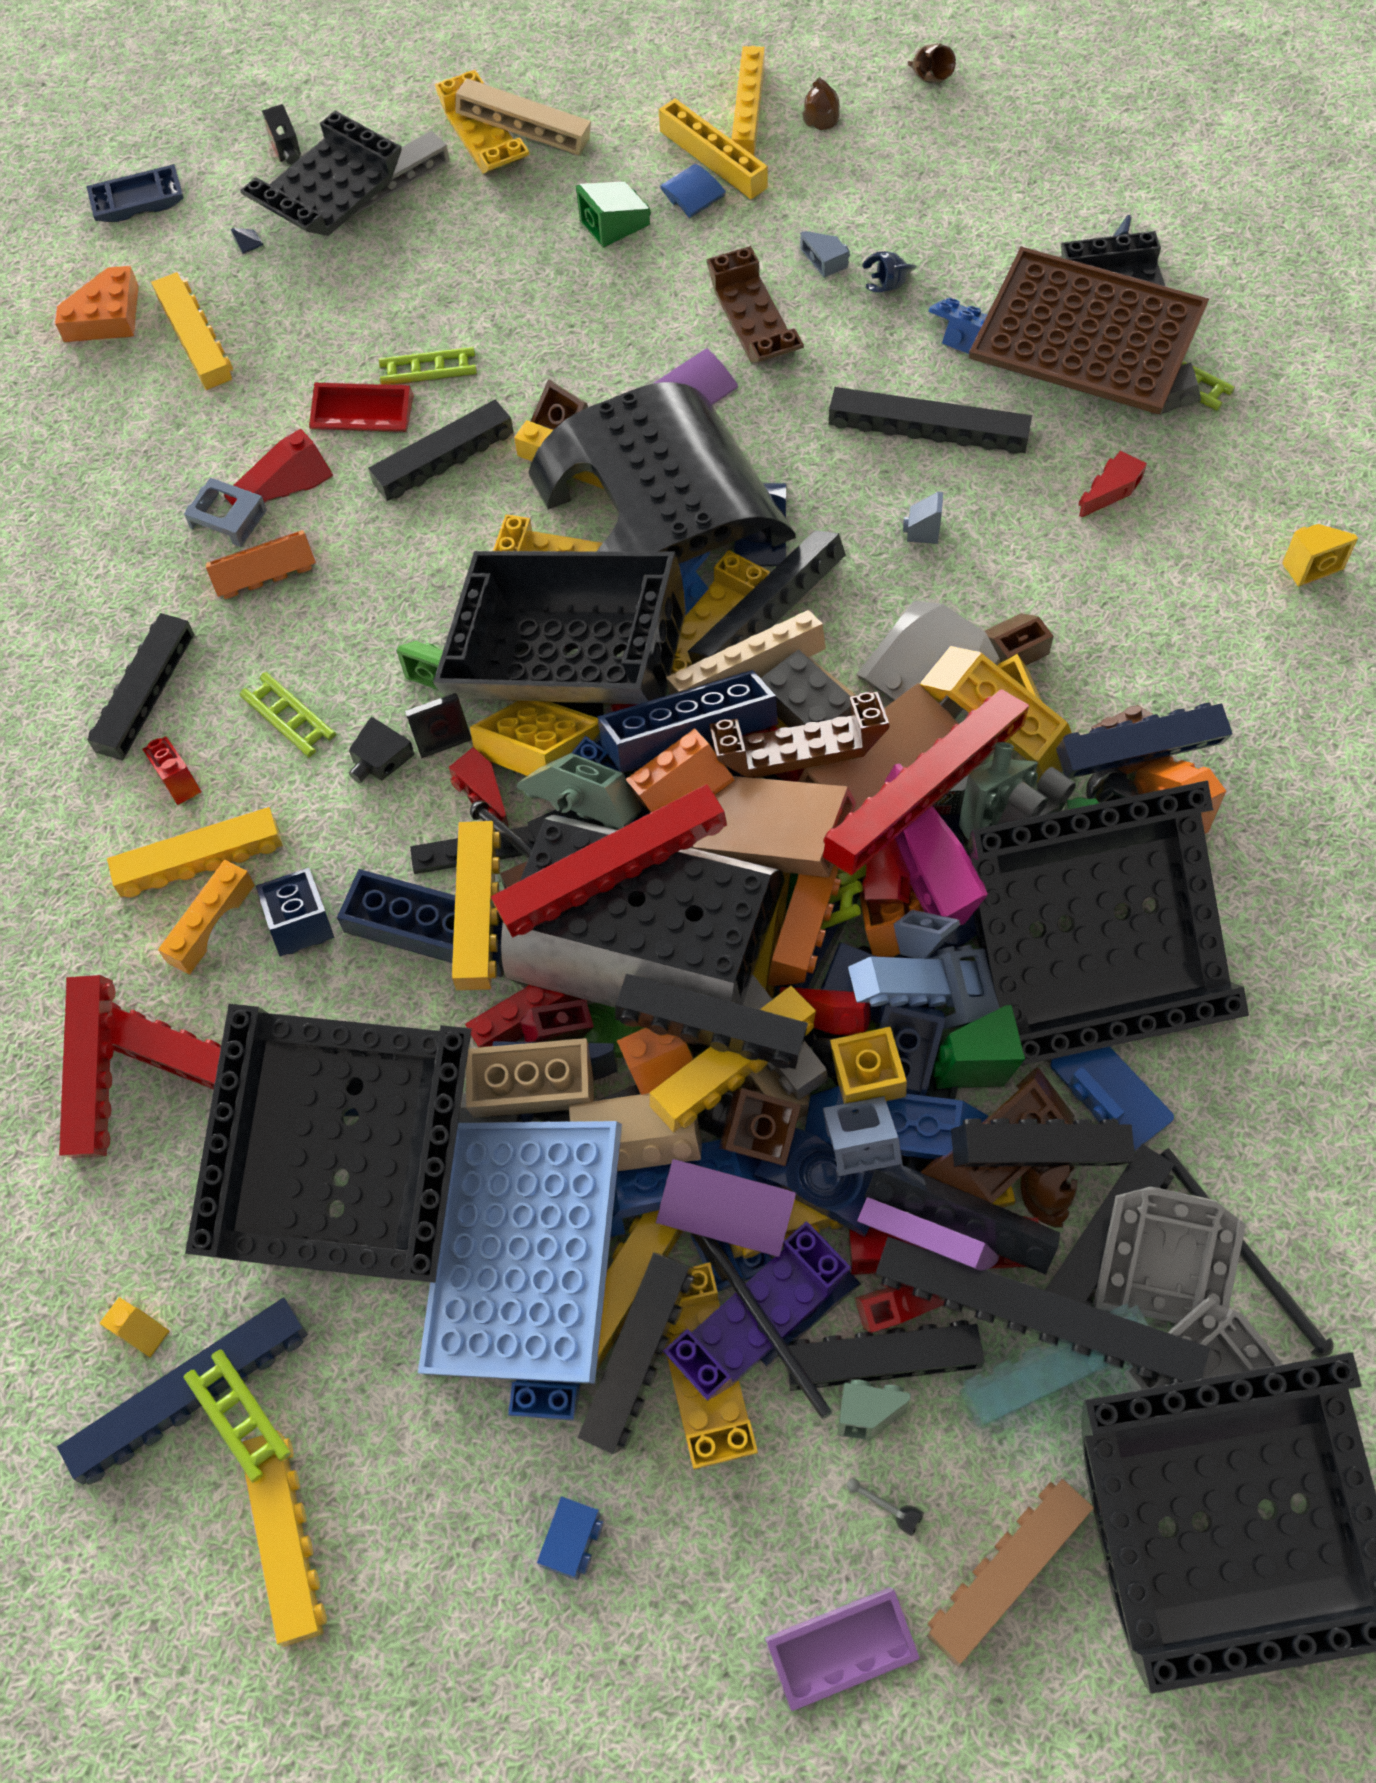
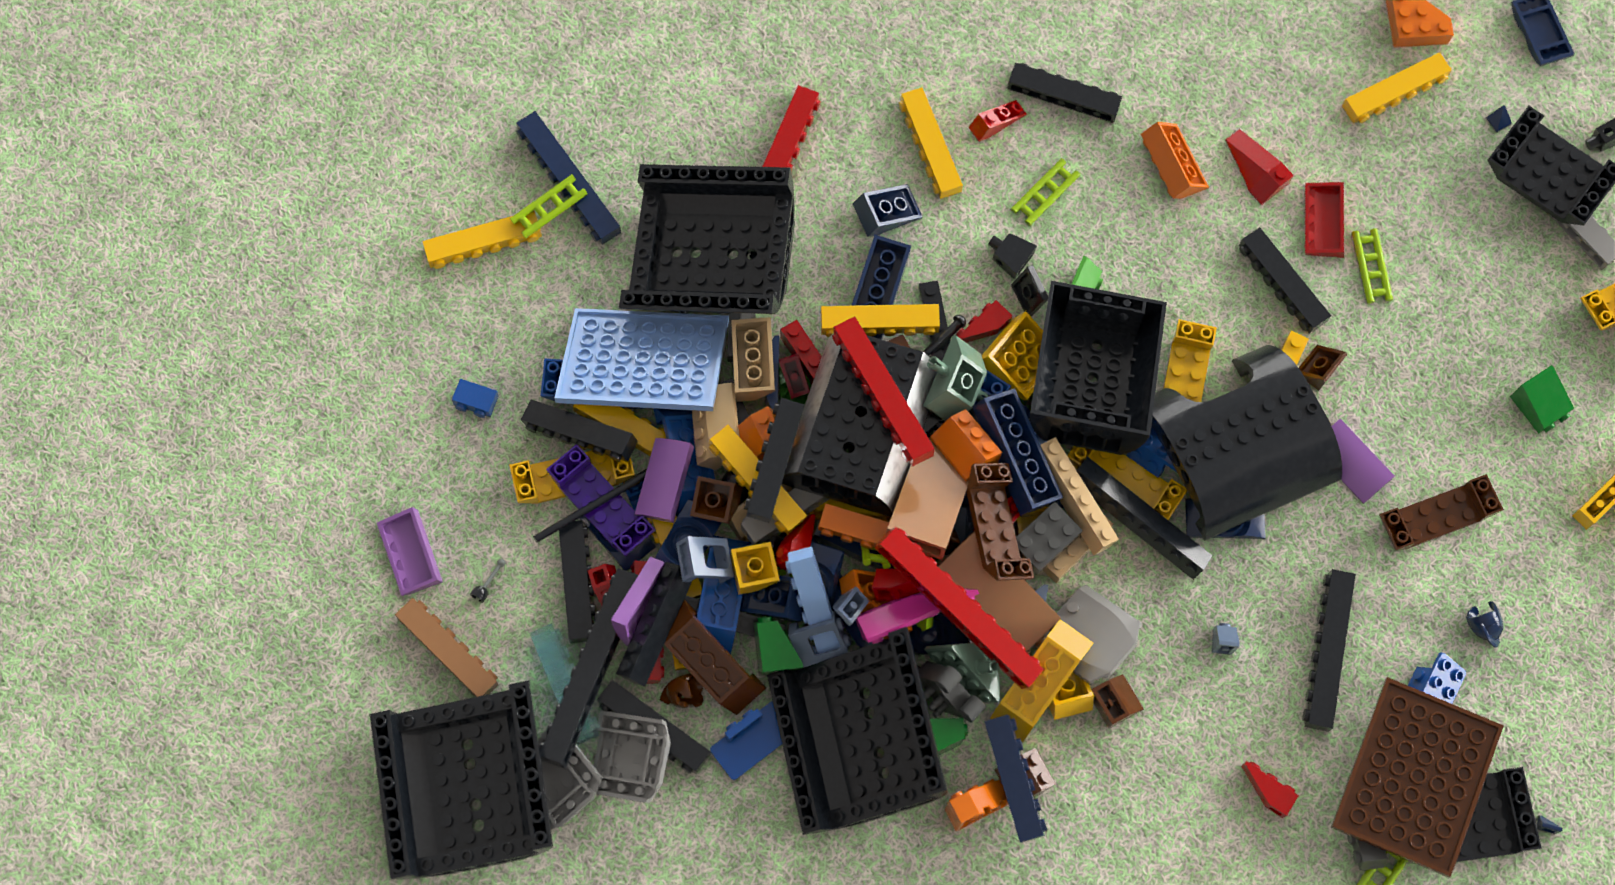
camera: 80 degrees right, 10 degrees up
(86, 1067) = (770, 94): red brick -> none
(134, 1327) = (607, 145): yellow slope -> none
(190, 936) = (897, 162): light orange arch -> none
(240, 519) = (1215, 143): sand blue window -> none
(693, 190) = (1576, 466): blue slope -> none
(824, 252) = (1508, 574): sand blue slope -> none
(870, 1409) = (540, 567): sand green slope -> none
(1042, 1144) = (702, 679): black brick -> none
(1110, 786) = (978, 759): black helmet -> none
(1322, 1346) = (613, 834): black bar -> none

